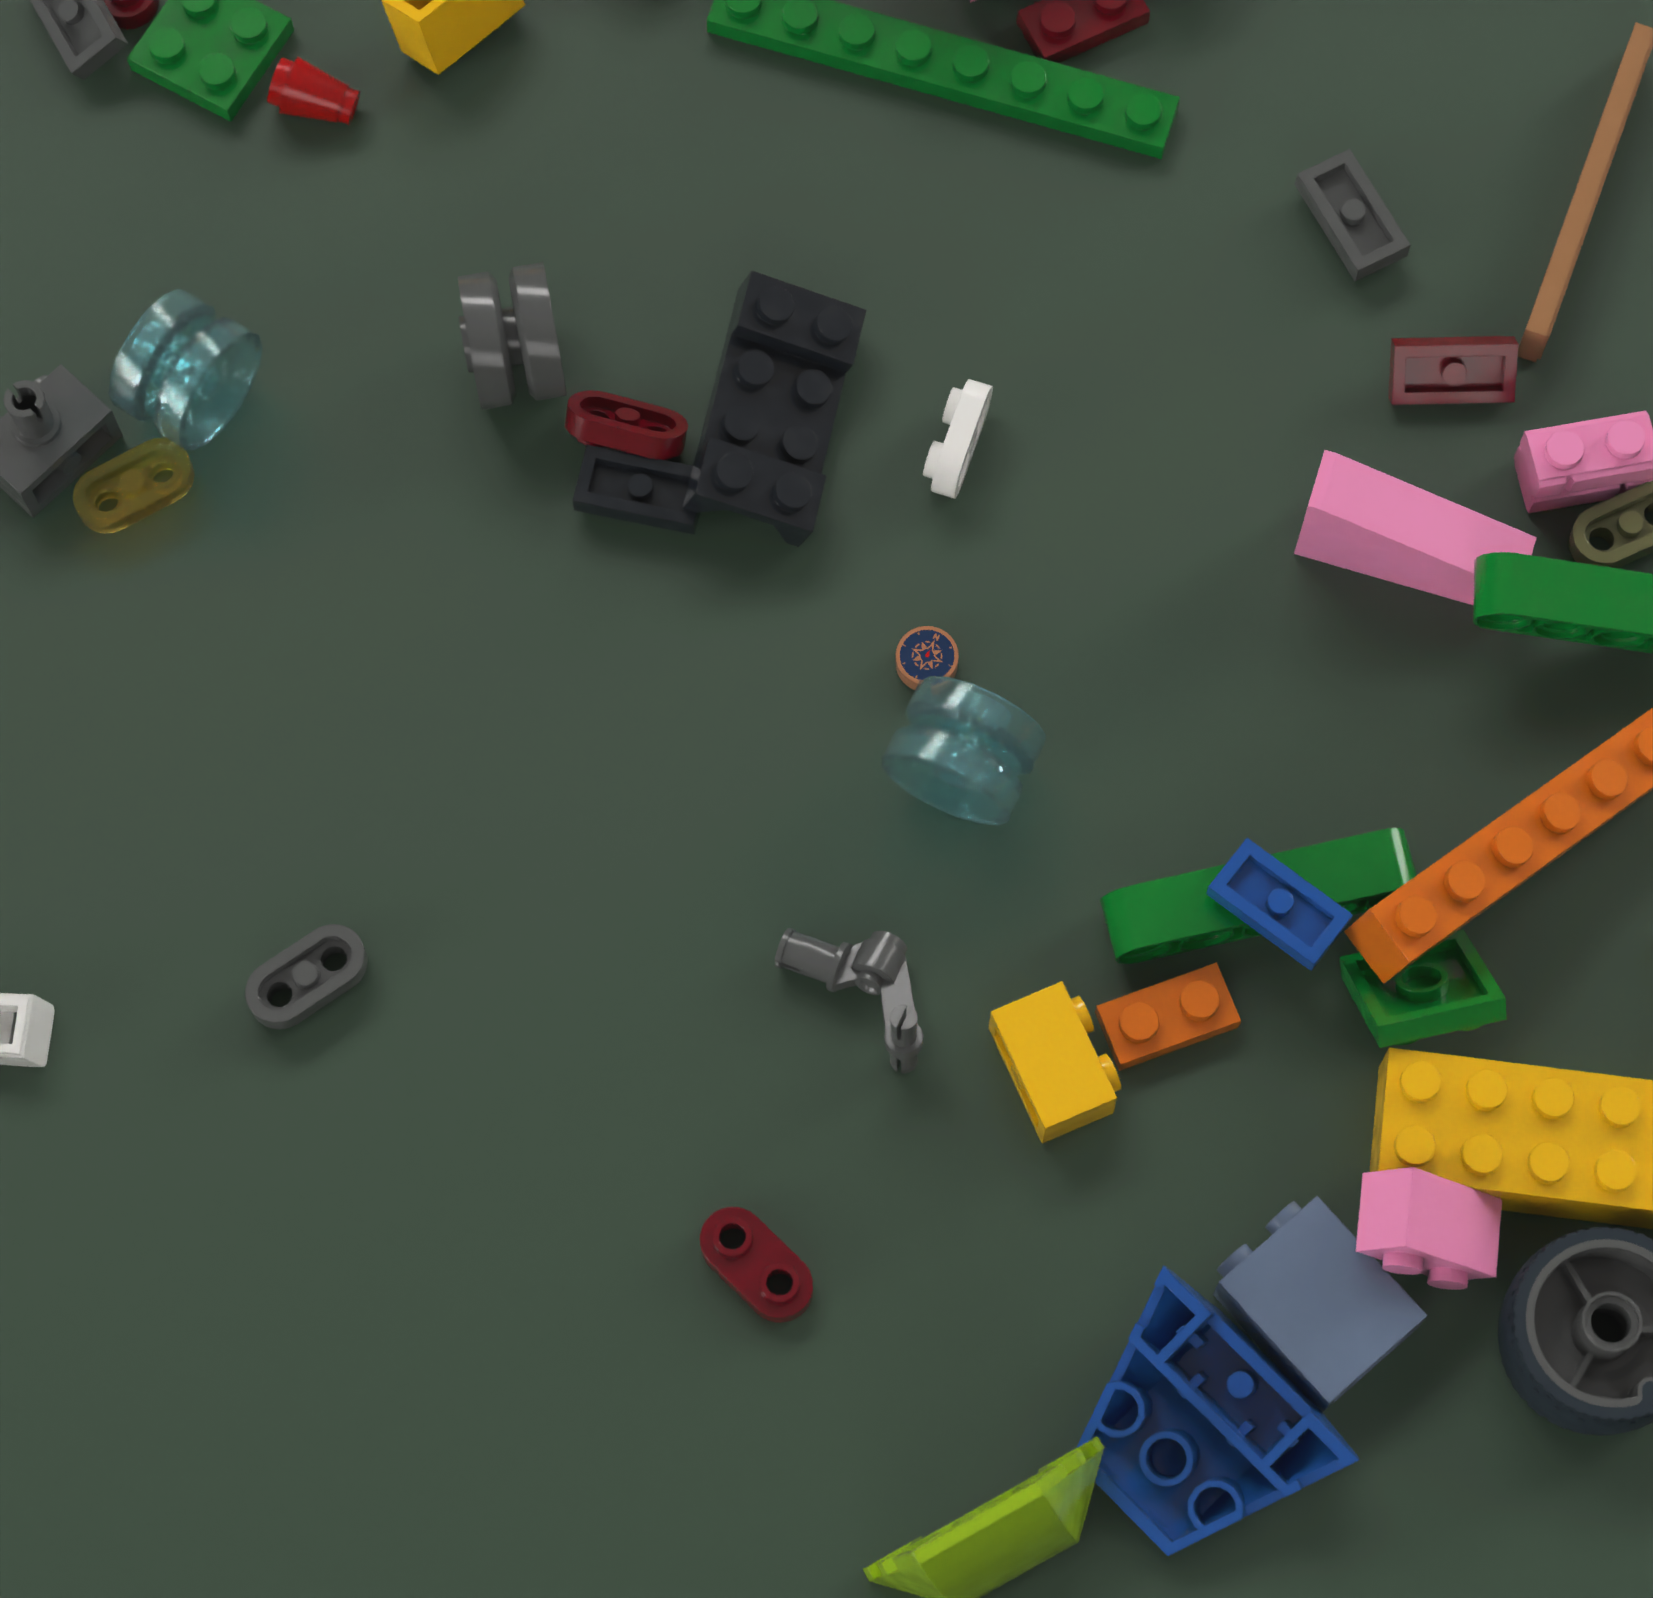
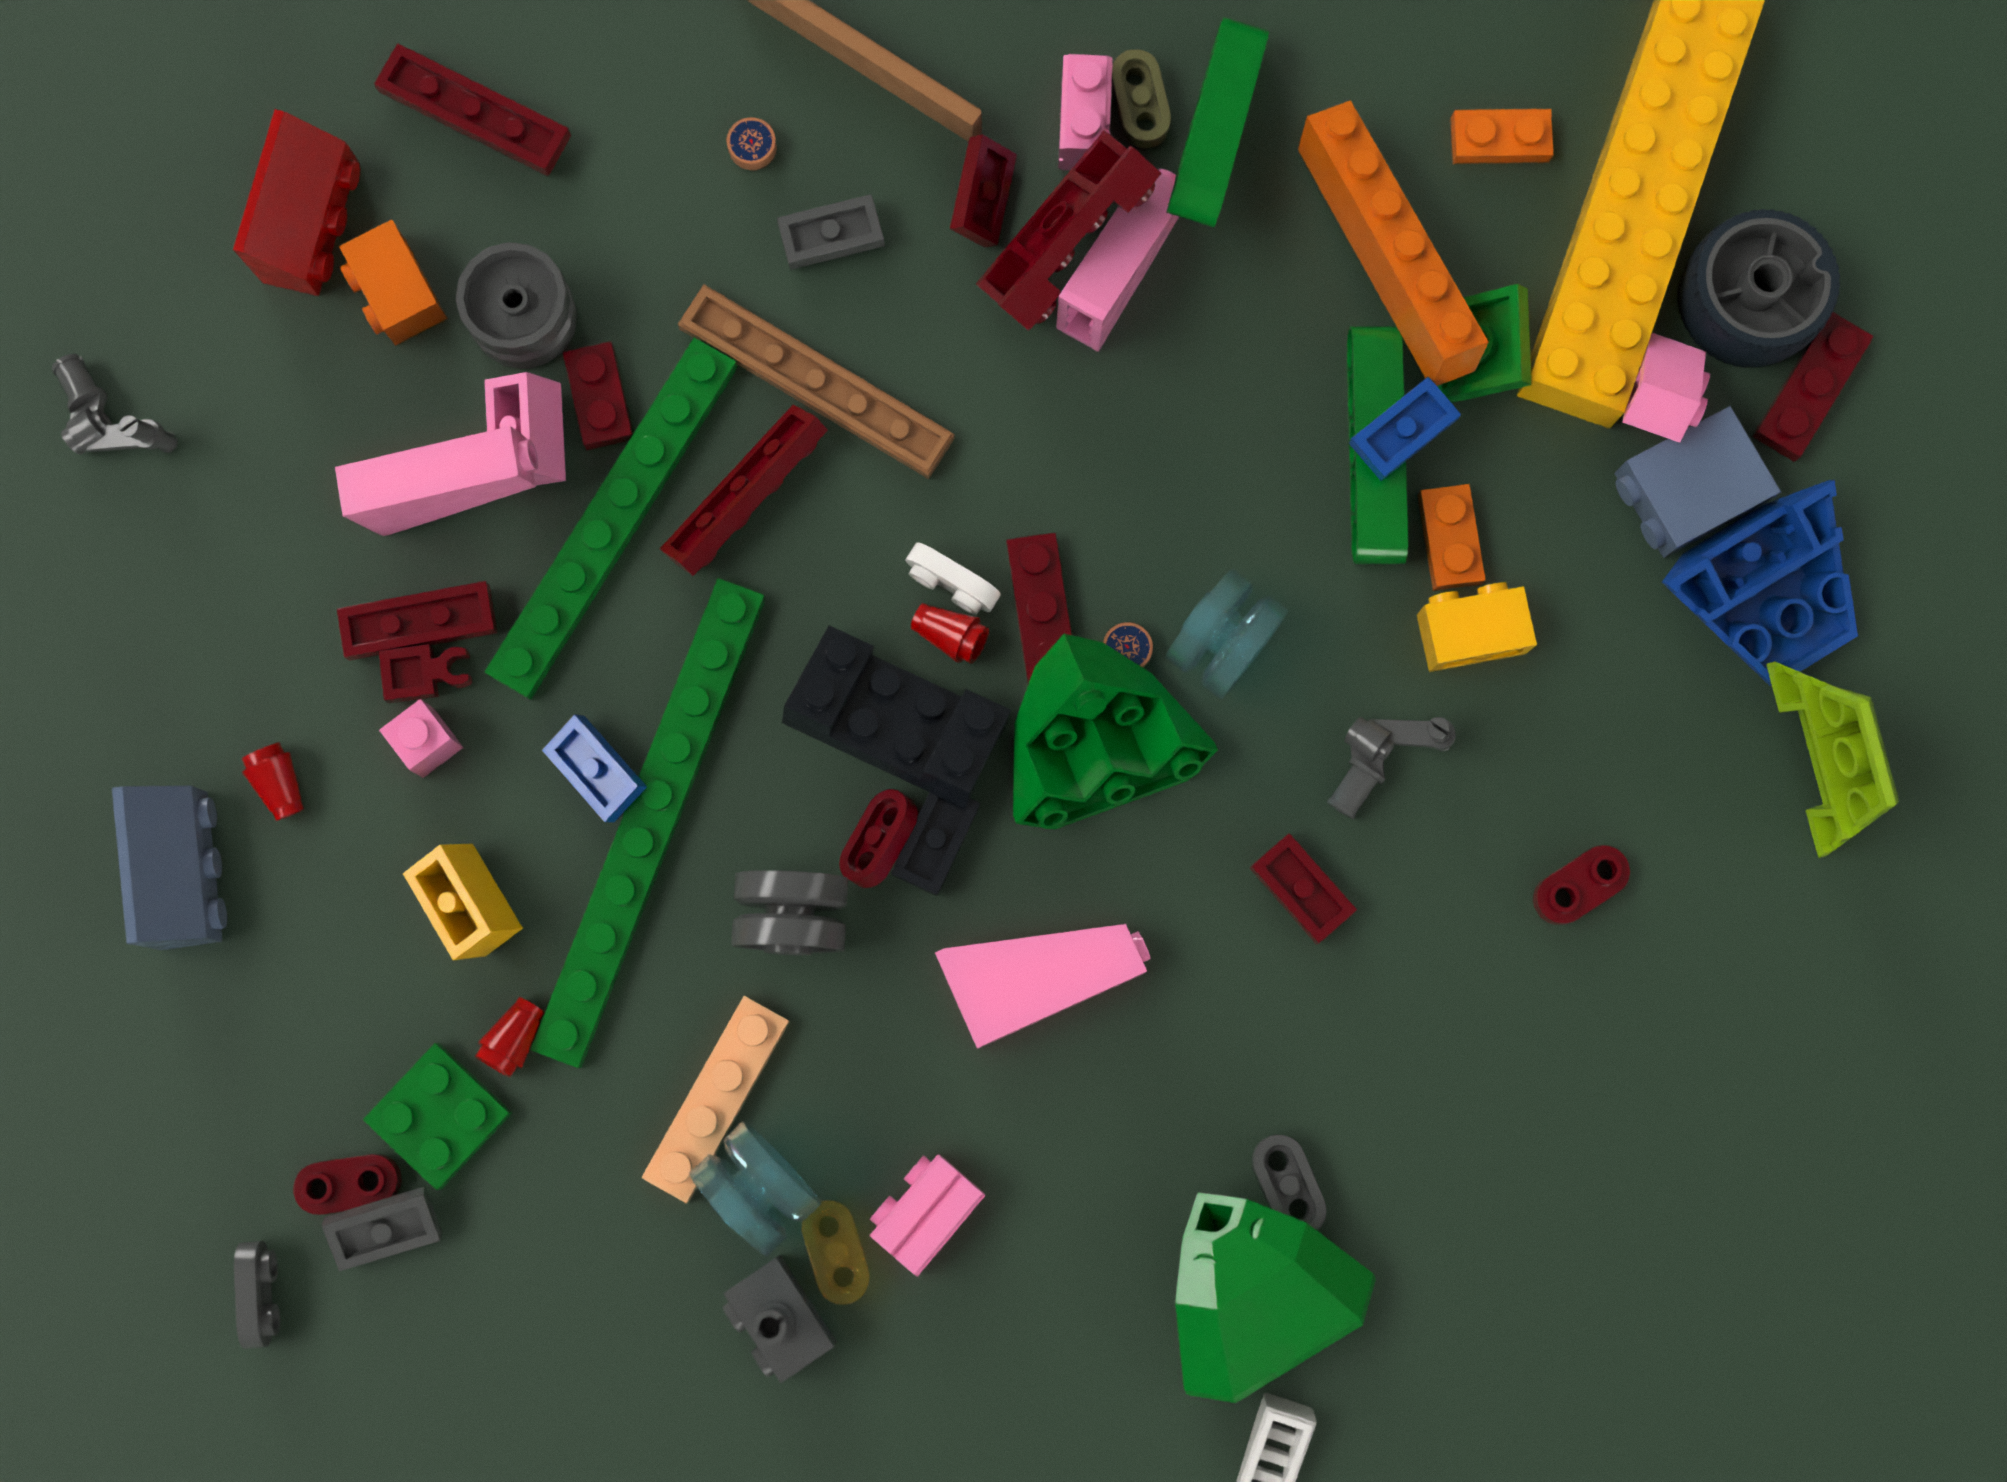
camera: 80 degrees left, 10 degrees up
(162, 955) = (1259, 1296): none -> green brick
(195, 571) = (926, 1213): none -> bright pink brick
(304, 325) = (716, 1097): none -> light nougat plate
(493, 628) = (1032, 978): none -> bright pink slope
(595, 183) = (648, 824): none -> green plate
(638, 105) = (594, 768): none -> plate
(674, 920) = (1303, 889): none -> dark red plate
(806, 640) = (1097, 736): none -> green brick
(894, 454) = (951, 632): none -> red cone
(949, 552) = (1038, 595): none -> dark red plate
(989, 181) = (744, 489): none -> dark red plate
(1164, 246) = (817, 381): none -> medium nougat tile
(1438, 109) = (751, 143): none -> tile
(1487, 478) = (1075, 207): none -> dark red piece
(1497, 1442) = (1812, 387): none -> dark red plate

